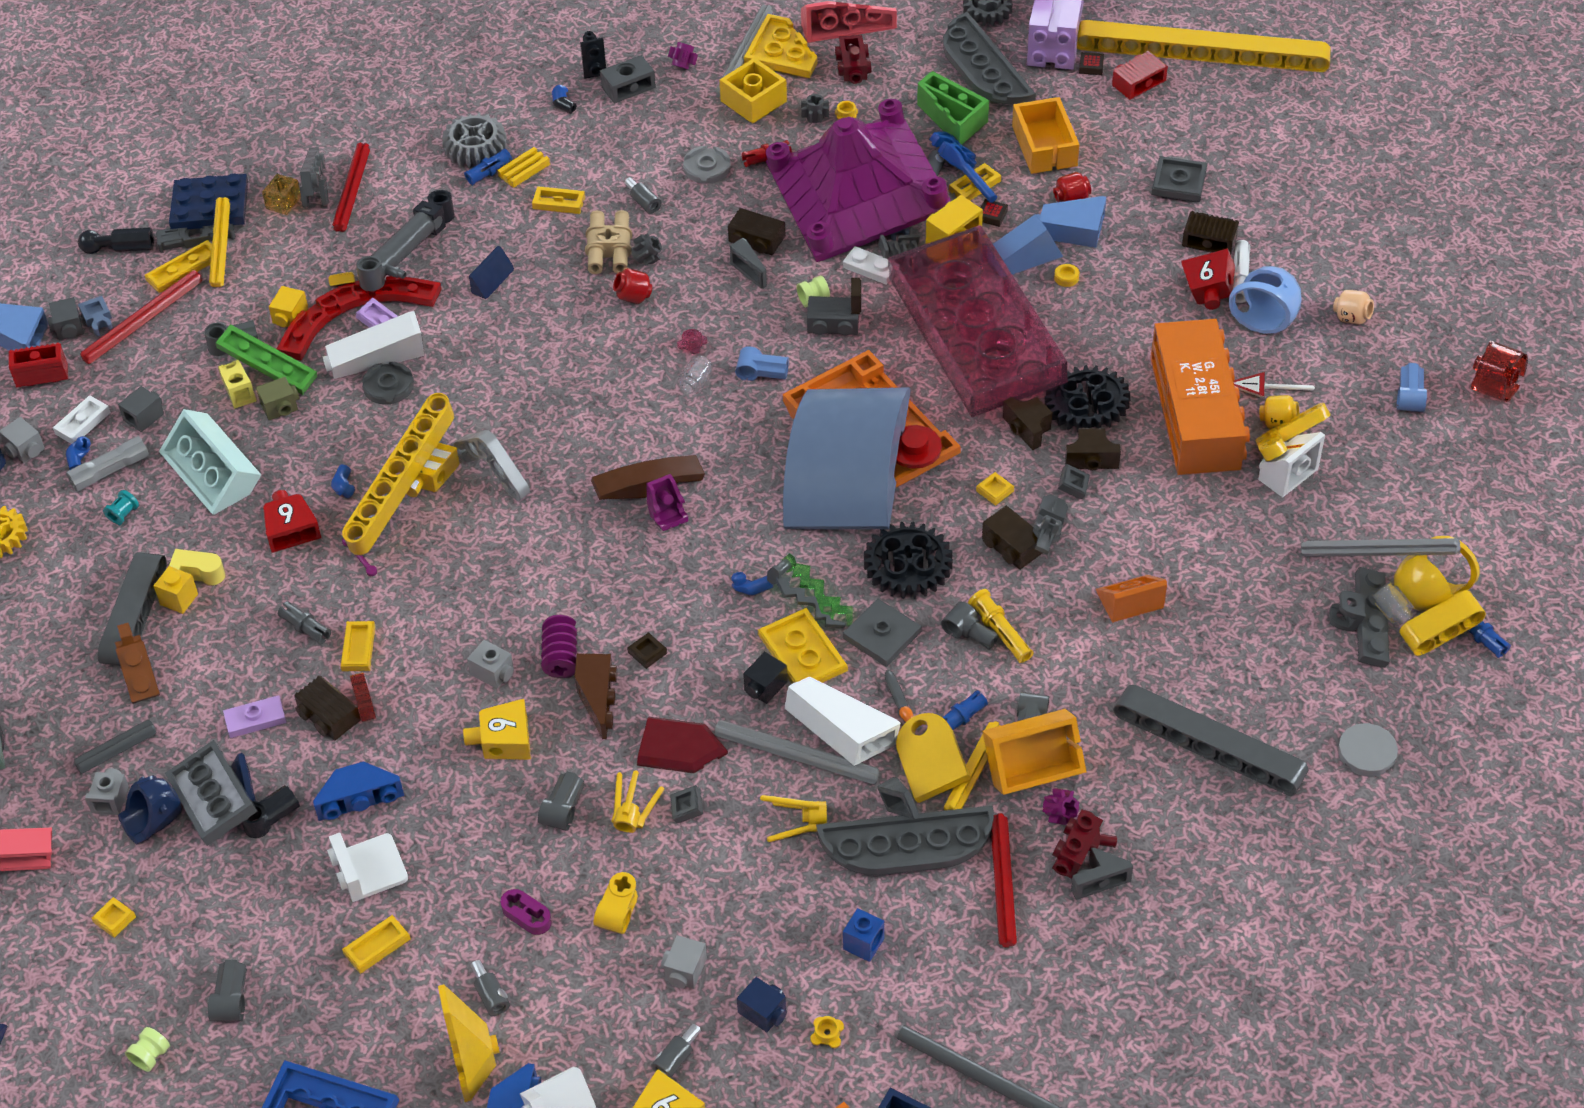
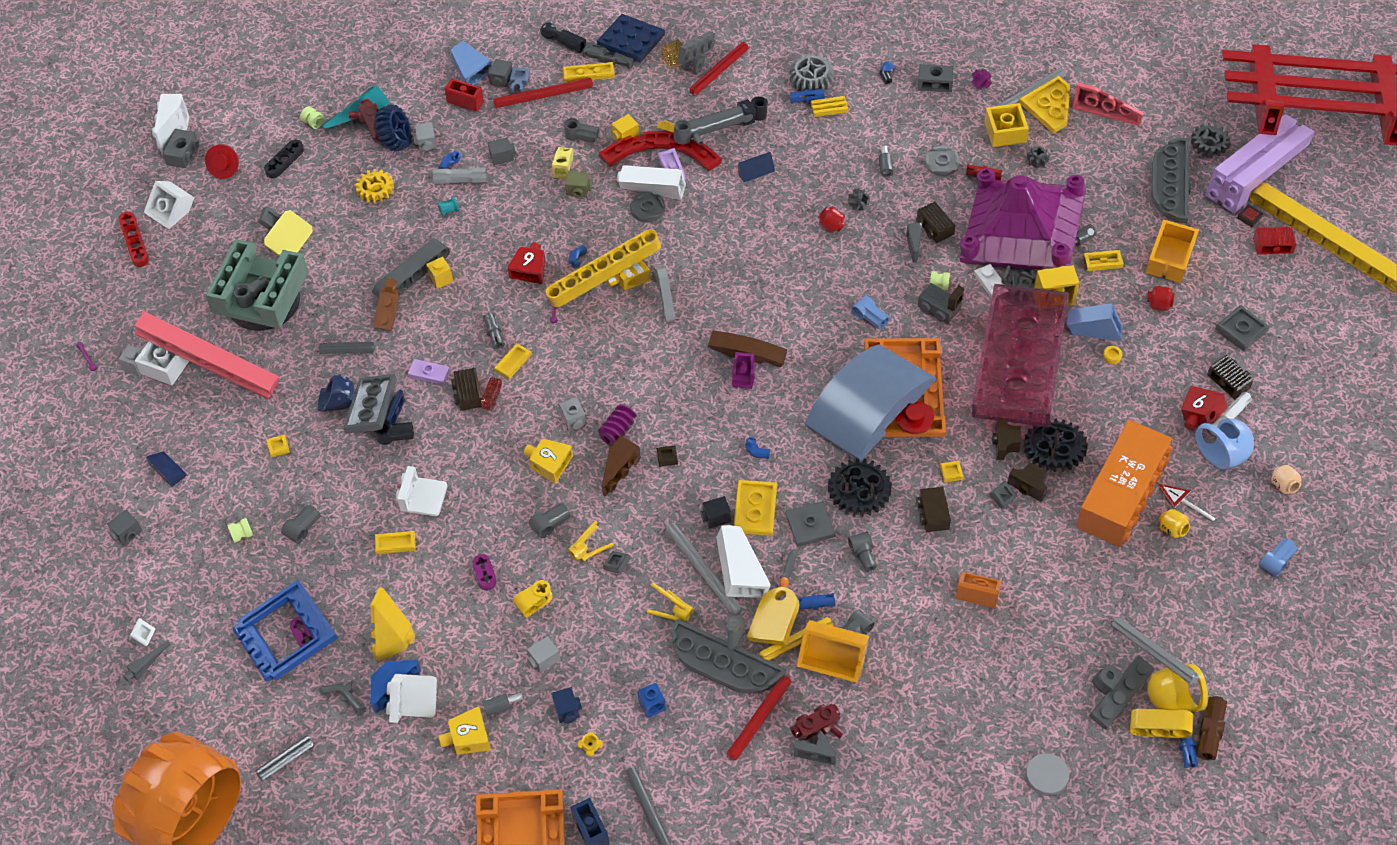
camera: 35 degrees right, 5 degrees up
(81, 419) = (466, 140): white plate -> none
(107, 792) = (322, 372): light grey brick -> none
(202, 565) = (461, 264): light yellow leg -> none
(209, 461) = (513, 203): light aqua slope -> none
(219, 242) = (615, 67): yellow axle -> none
(265, 358) = (588, 156): bright green plate -> none
(355, 790) = (446, 446): blue slope -> none
(489, 990) = (431, 605): dark grey piece -> none
(558, 201) = (832, 141): yellow tile -> none
(592, 55) = (921, 51): black hinge -> none
(608, 241) = (840, 182): tan pin -> none
(678, 745) = (640, 523): dark red tile -> none
(692, 341) = (841, 270): clear pink plate -> none
(695, 375) = (825, 298): clear brick -> none
(818, 601) = (785, 482): piece -> none
(846, 109) = (1058, 168): yellow plate -> none
(853, 59) = (1089, 134): dark red brick -> none
(952, 106) = (1126, 201): bright green wedge -> none
(962, 159) = (1104, 238): blue piece -> none
(993, 212) = (1098, 286): tile -> none
(994, 617) = (882, 553): yellow pin -> none
(1049, 522) = (963, 513): dark grey piece -> none
(1060, 806) = (823, 689): magenta gear -> none
(1075, 220) = (1145, 320): medium blue slope -> none
(1211, 739) = (952, 708): dark grey beam -> none
(1272, 442) = (1149, 540): yellow beam -> none
(1294, 465) = (1151, 562): white slope -> none
(1393, 604) = (1136, 692): clear brick -> none
(1495, 601) = (1212, 728): none -> reddish brown piece
(1499, 371) = (1347, 578): clear red brick -> none

